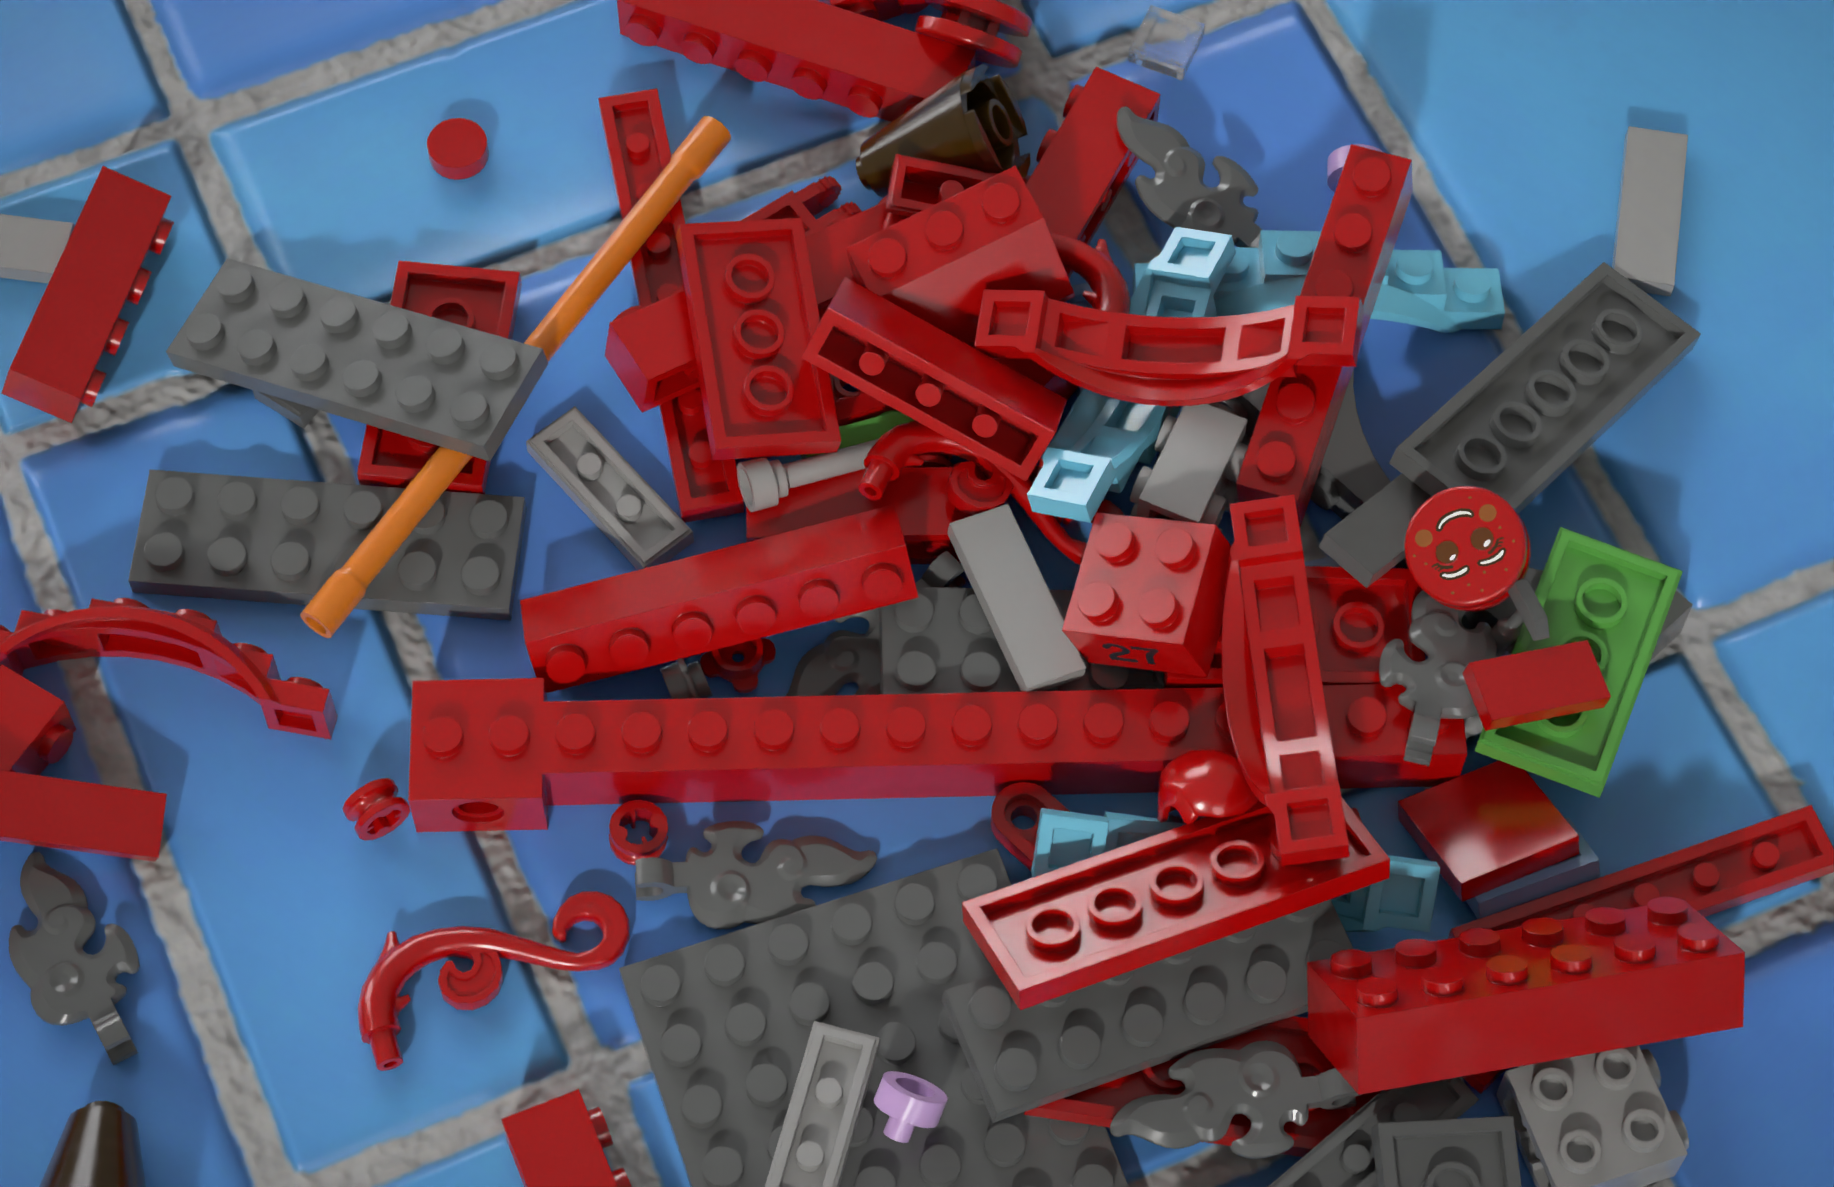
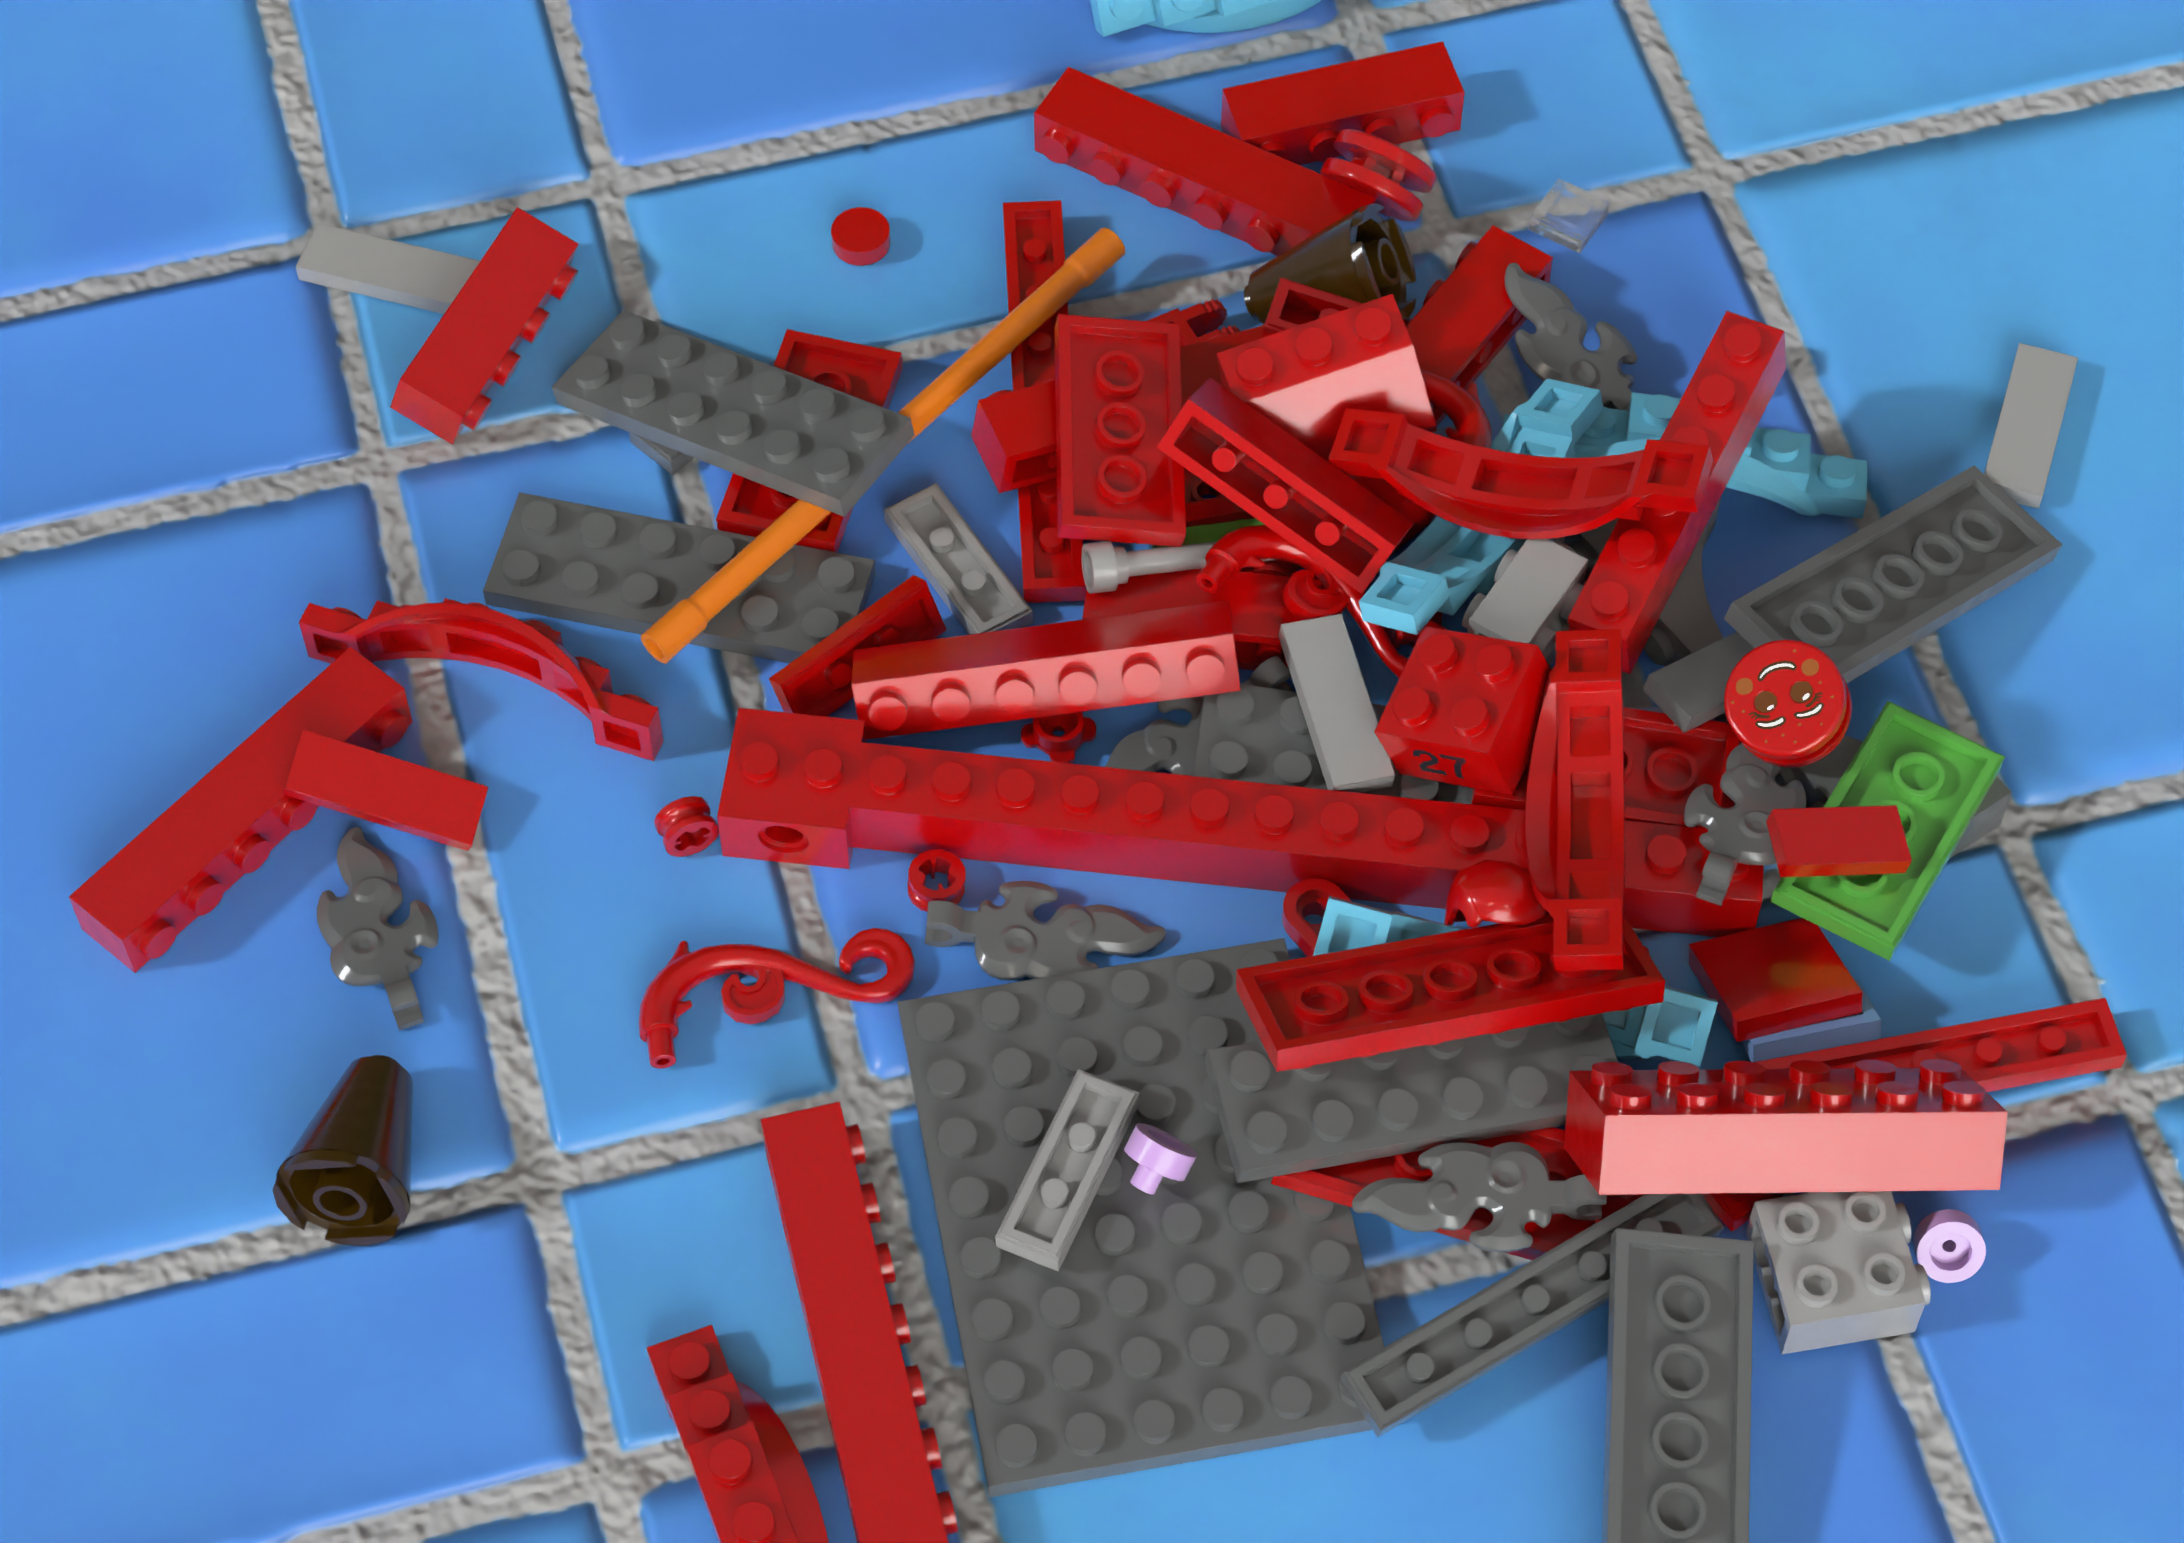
camera: 10 degrees right, 5 degrees down
(494, 627) = (822, 676): none -> red tile
(686, 680) = (1003, 742): dark grey plate -> none
(1528, 610) = (1840, 770): dark grey piece -> none
(1697, 1084) = (1949, 1245): none -> tile

